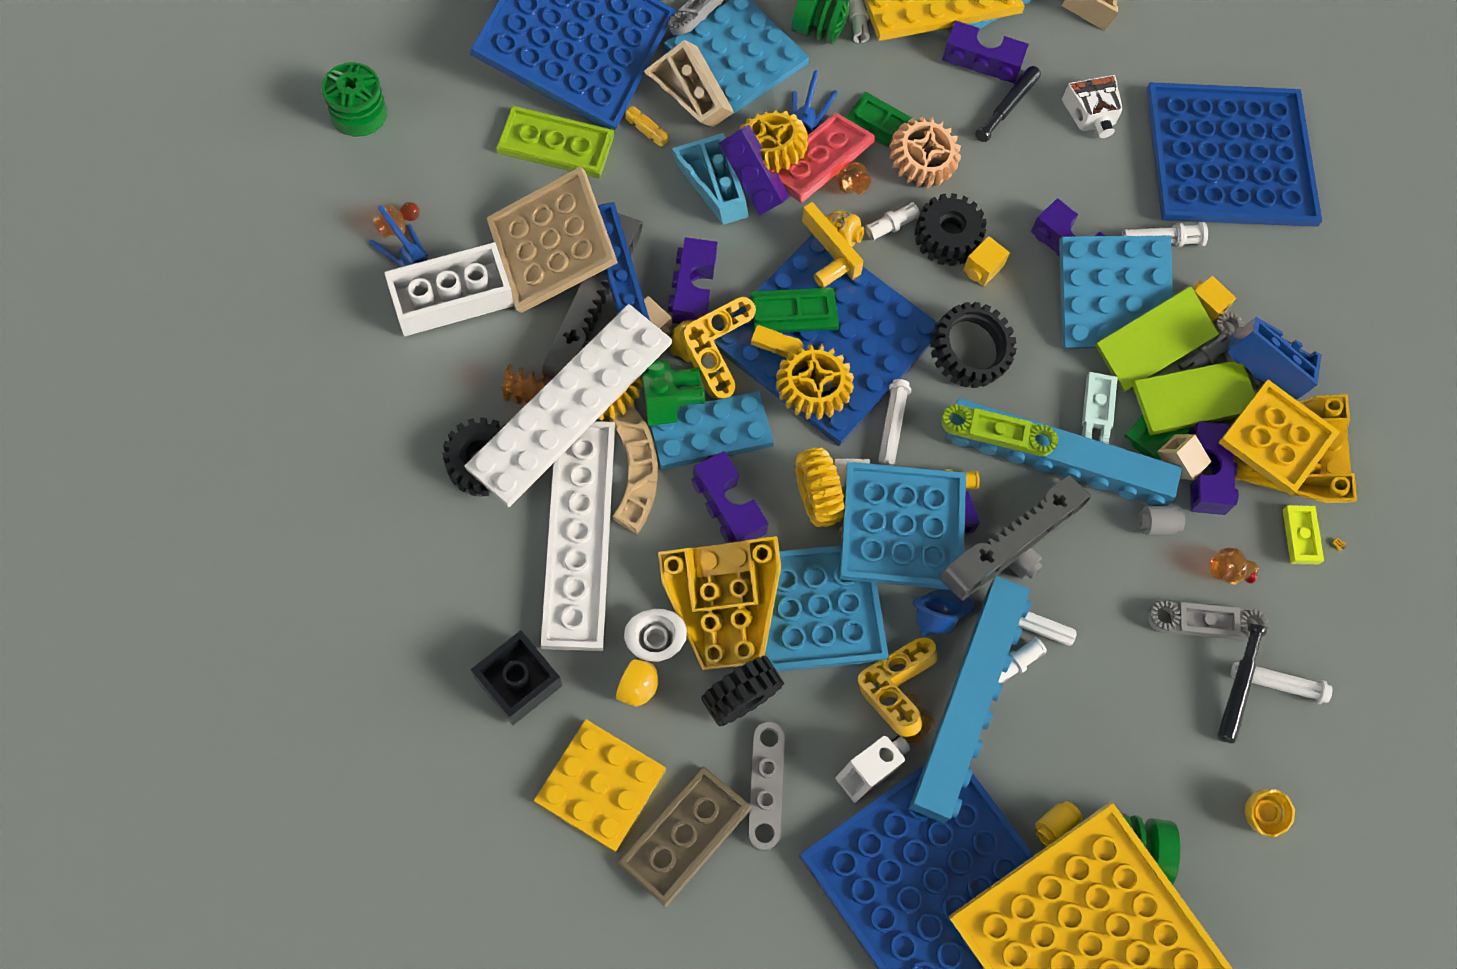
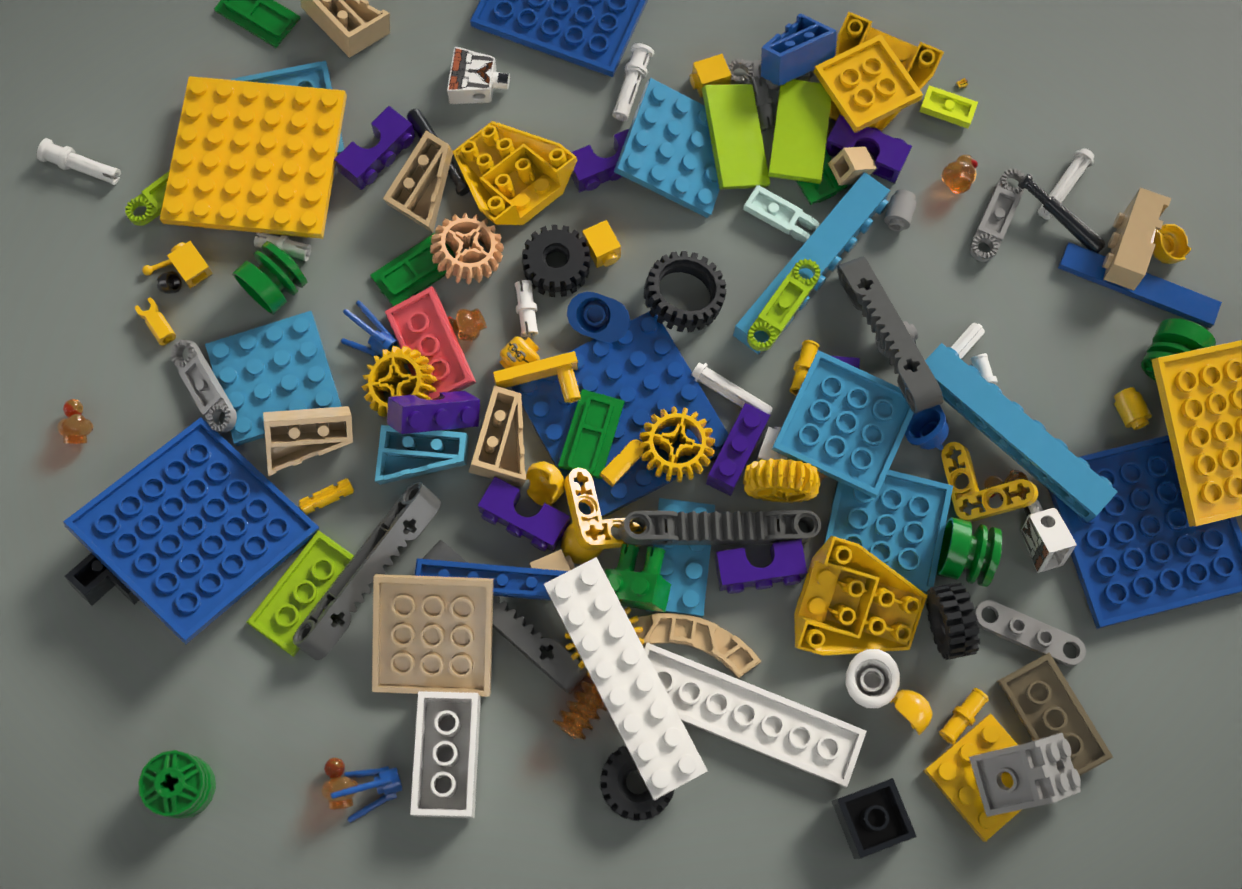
camera: 65 degrees left, 5 degrees up
(612, 815) = (1039, 772): none -> light grey bracket
(653, 741) = (963, 716): none -> yellow pin
(664, 192) = (318, 631): none -> dark grey gear
(731, 289) = (545, 483): none -> yellow hair
(748, 445) = (719, 528): none -> dark grey gear
(756, 236) = (500, 441): none -> tan wedge
(823, 688) = (975, 553): none -> green wheel
(837, 438) = (737, 449): none -> dark purple arch
(910, 276) = (598, 317): none -> blue piece
(970, 93) = (422, 181): none -> tan wedge
(1016, 166) = (513, 172): none -> yellow wedge
(1206, 798) = (1150, 290): none -> blue tile
(1252, 765) = (1133, 239): none -> tan wedge

